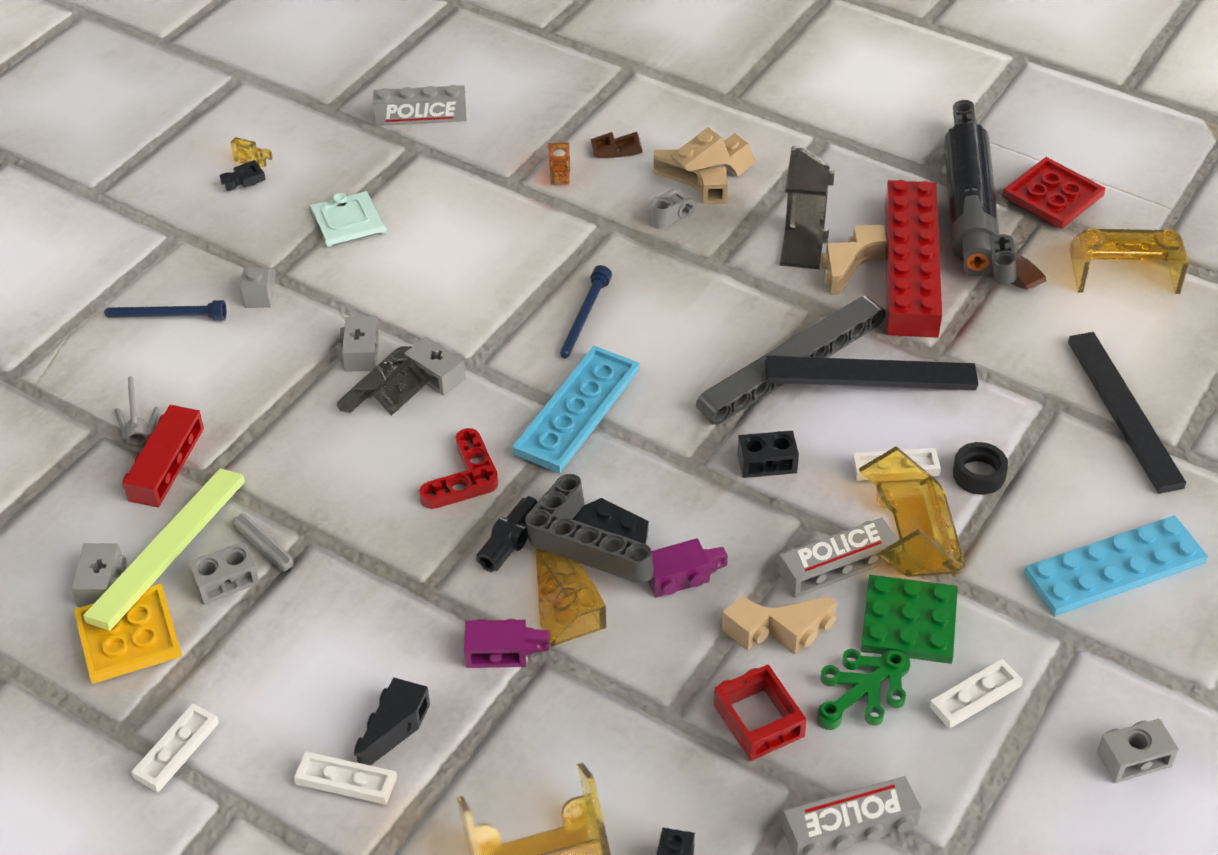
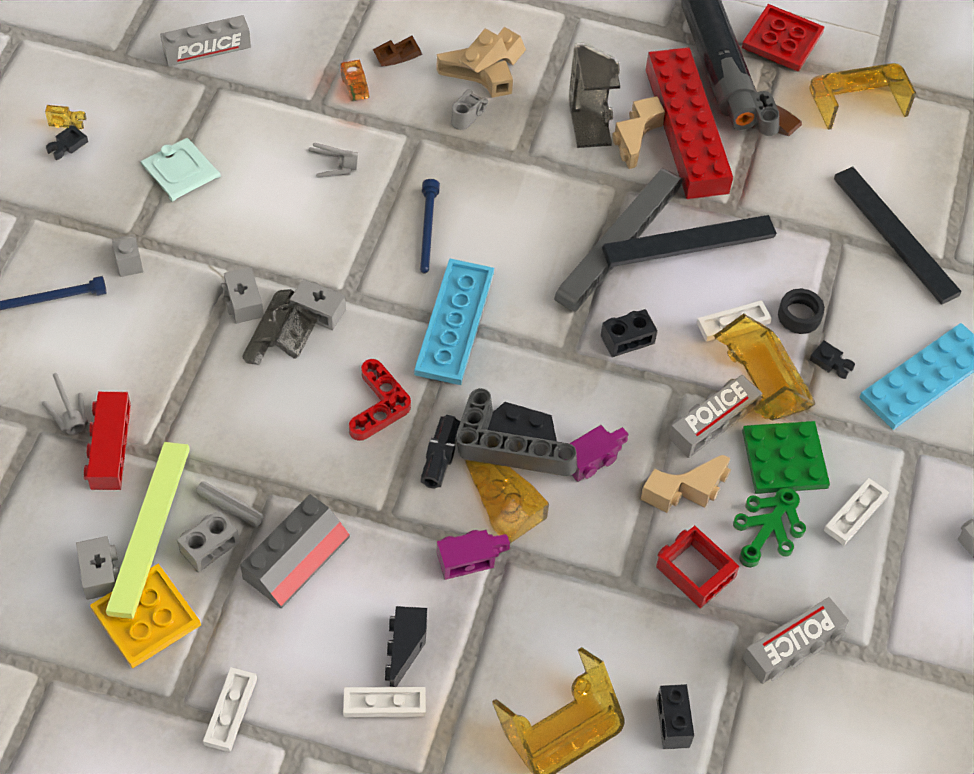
camera: 20 degrees left, 10 degrees up
(310, 601) = (294, 551): none -> dark grey slope
(521, 233) = (347, 159): none -> light grey plant
(1000, 523) = (830, 358): none -> black plate

